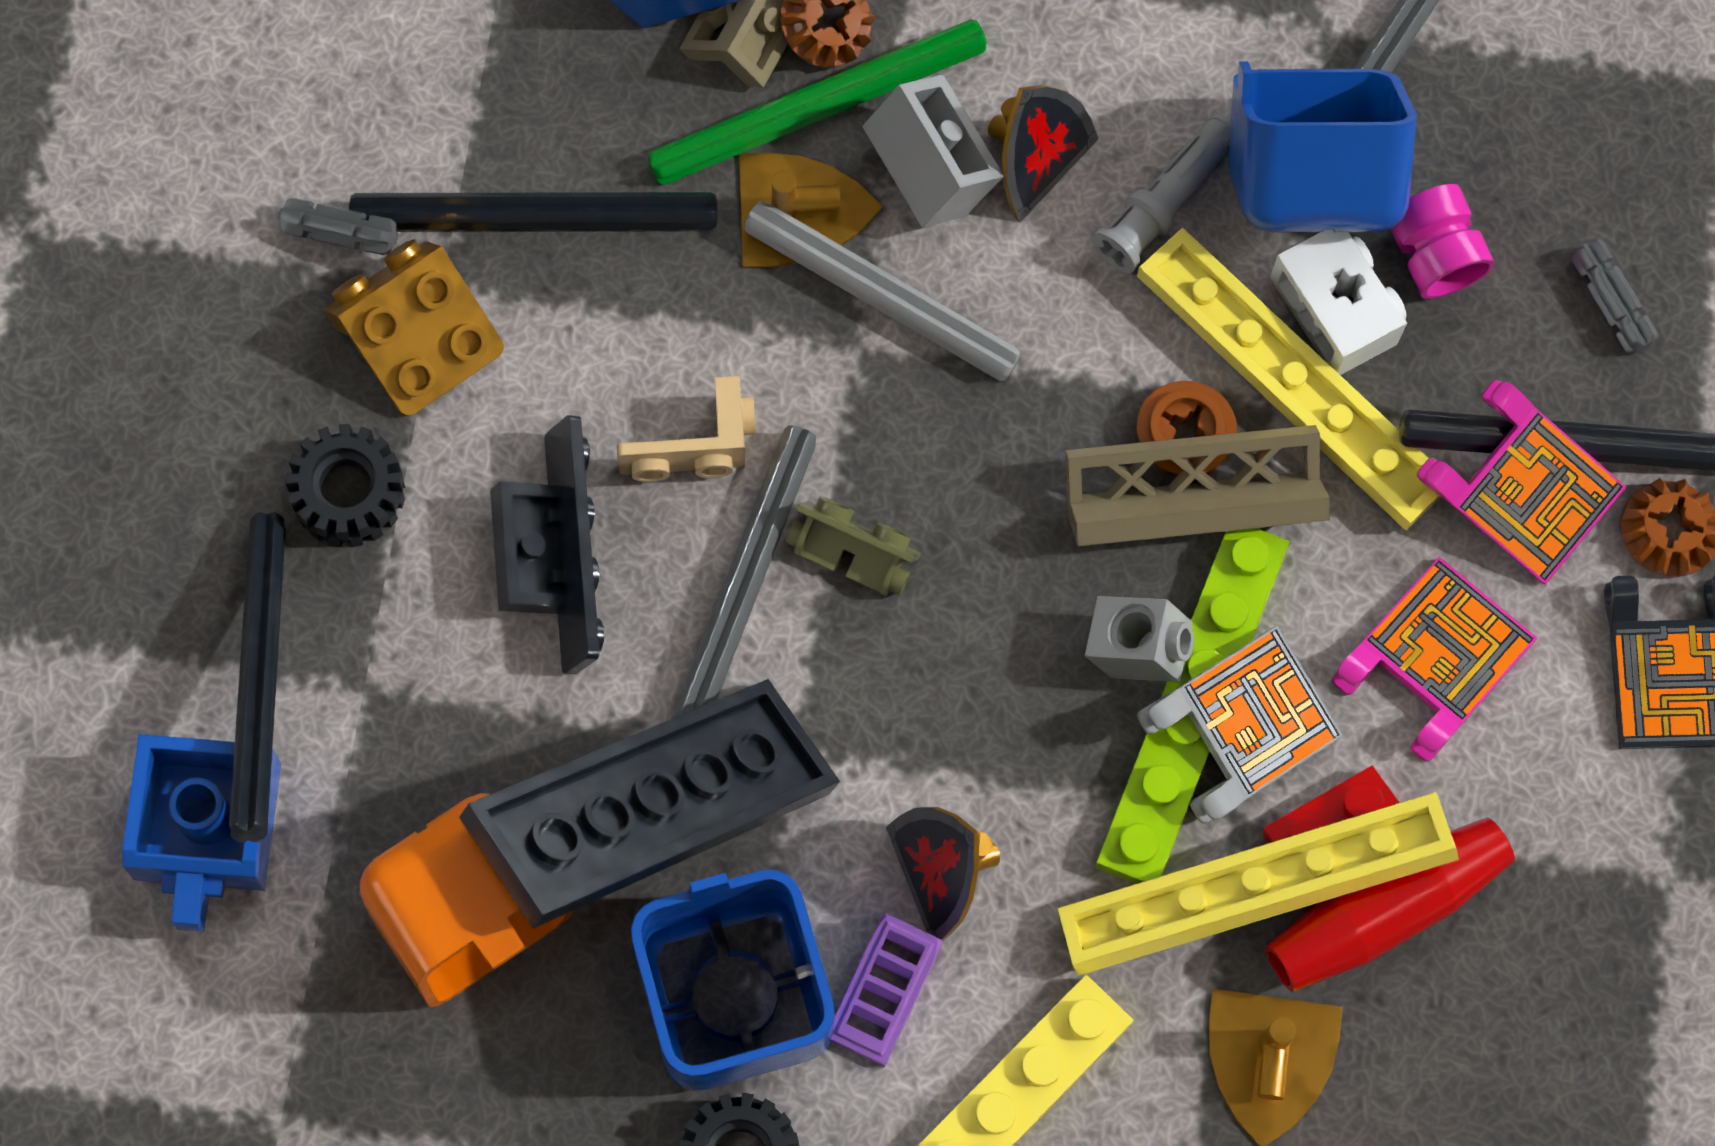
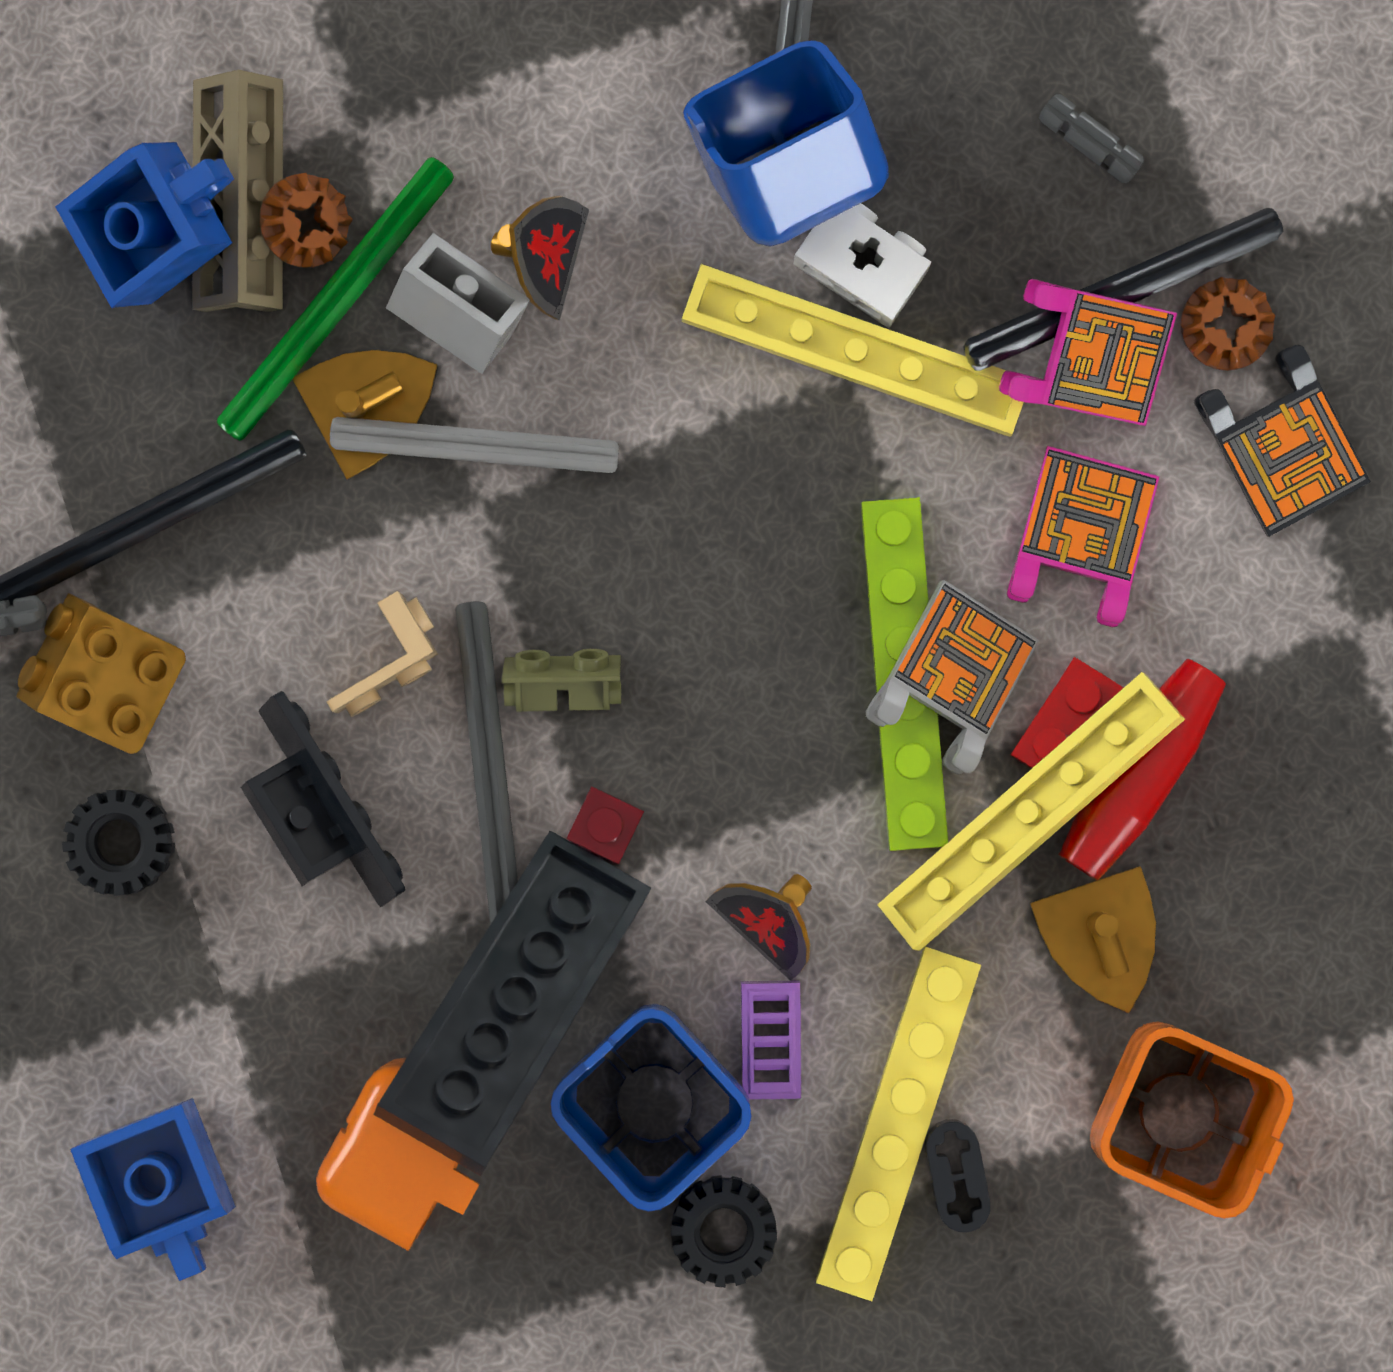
camera: 20 degrees left, 15 degrees up
(257, 679) = (139, 1051): black axle -> none
(825, 702) = (605, 825): none -> dark red plate
(1121, 625) = (817, 655): light grey brick -> none
(1151, 210) = (667, 258): light grey pin -> none
(1177, 403) = (809, 423): dark orange gear -> none
(1200, 506) = (826, 501): dark tan fence -> none
(1443, 248) = (928, 170): dark pink wheel -> none

